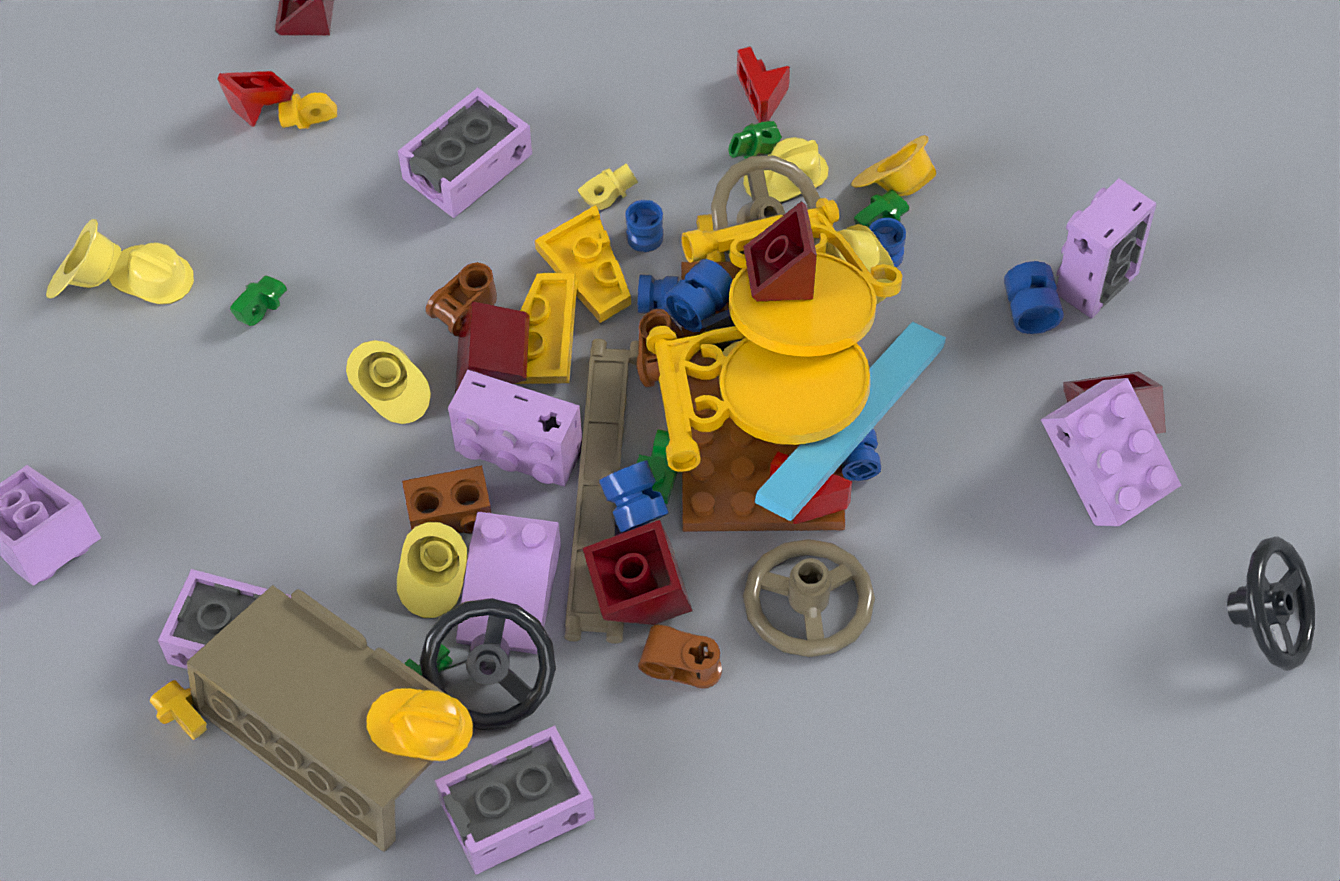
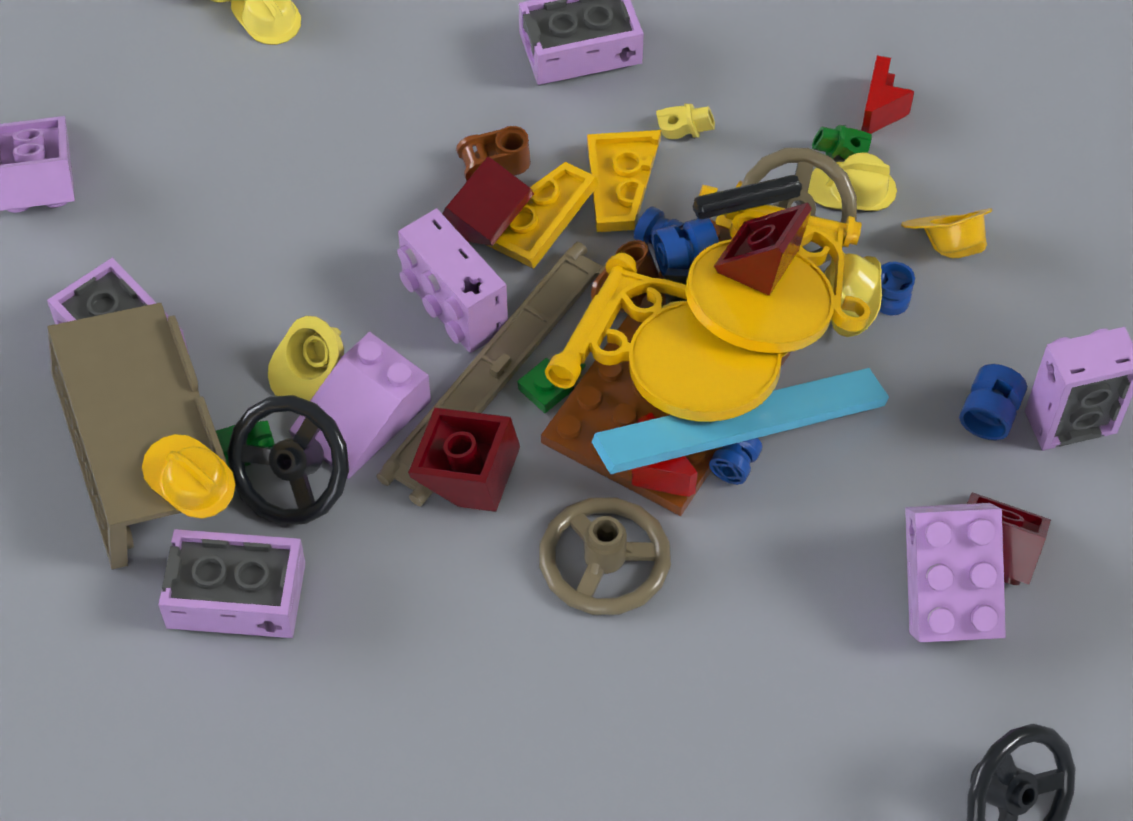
camera: 30 degrees right, 0 degrees up
(175, 703) = (35, 363): yellow piece -> none
(256, 299) = (328, 72): green piece -> none
(388, 381) = (382, 189): light yellow piece -> none
(446, 495) = (361, 309): dark orange brick -> none
(634, 496) = (510, 387): blue wheel -> none
(644, 226) = (690, 168): blue wheel -> none
(680, 656) = (456, 545): dark orange piece -> none
(730, 224) = (747, 197): none -> black axle
(885, 206) = (918, 257): green piece -> none

